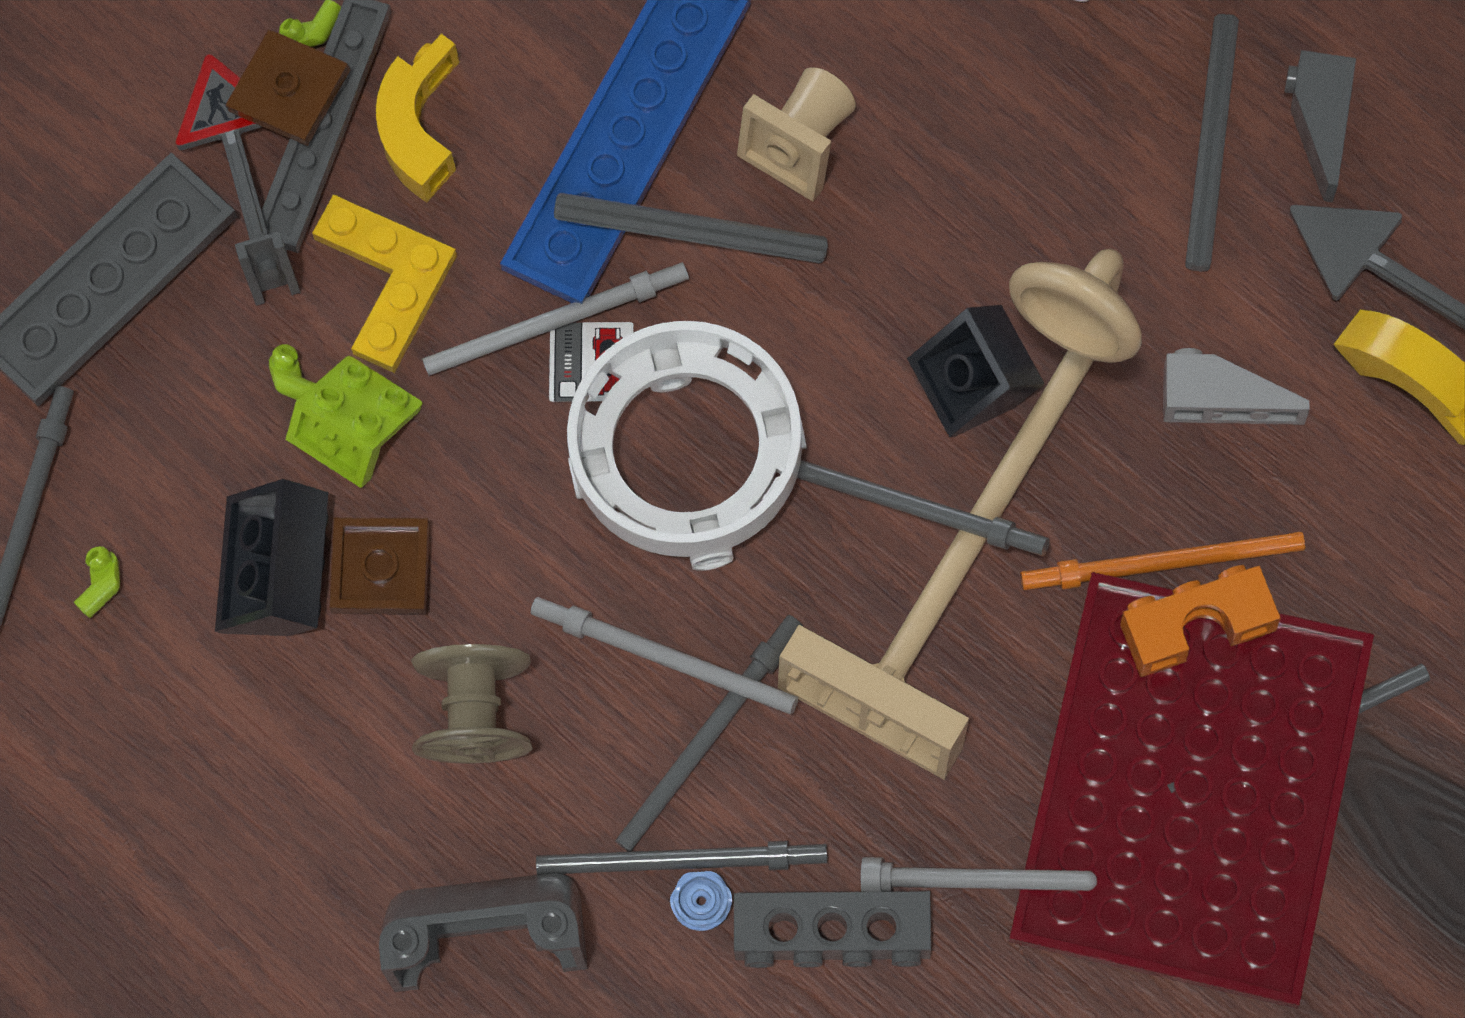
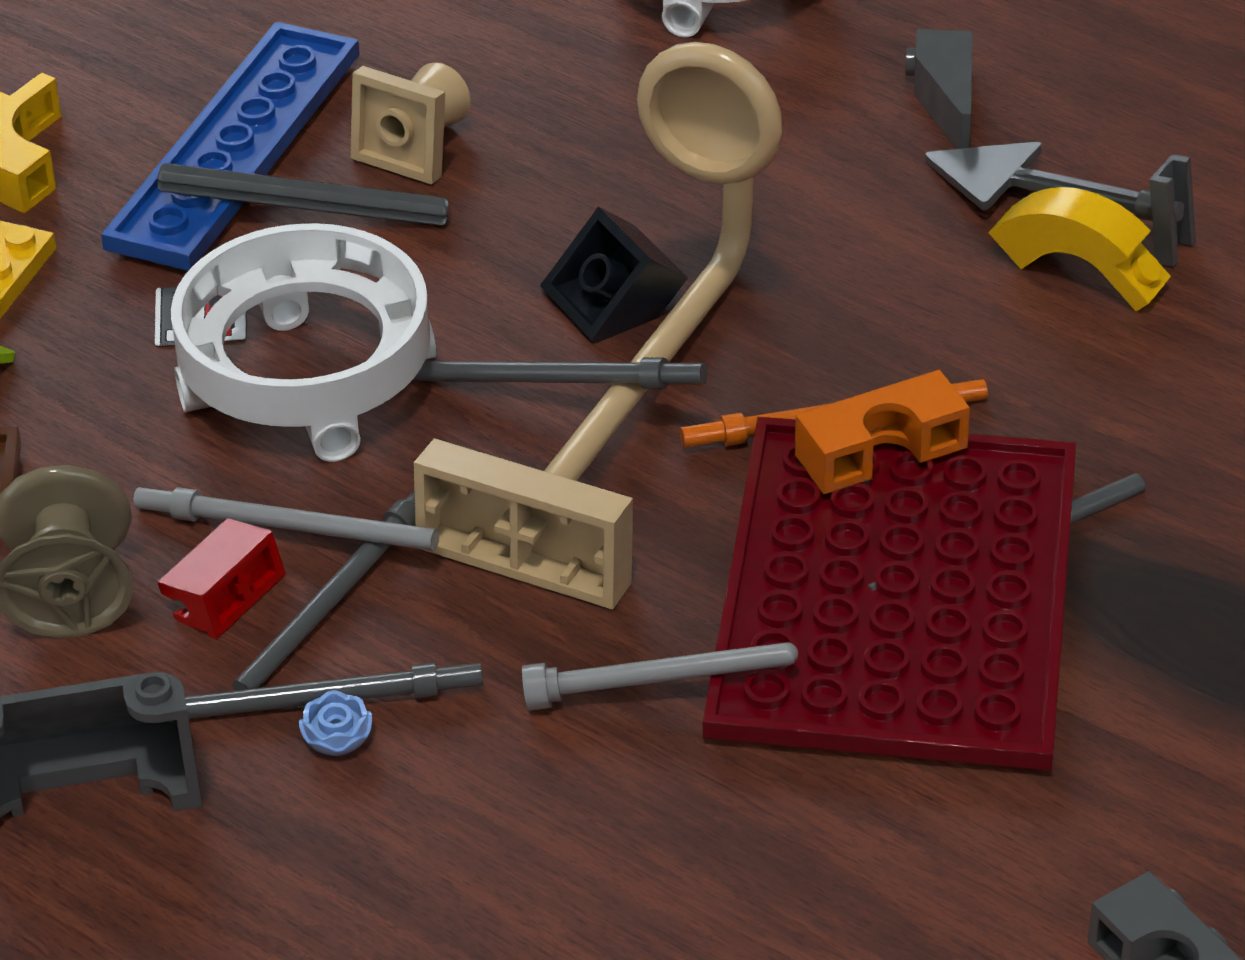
camera: 10 degrees left, 30 degrees down
(608, 719) = (223, 576): none -> red hinge
(641, 287) = (104, 297): light grey bar -> none
(809, 910) = (492, 730): dark grey brick -> none
(1212, 143) = (838, 116): dark grey axle -> none
(1217, 391) = (884, 278): light grey slope -> none

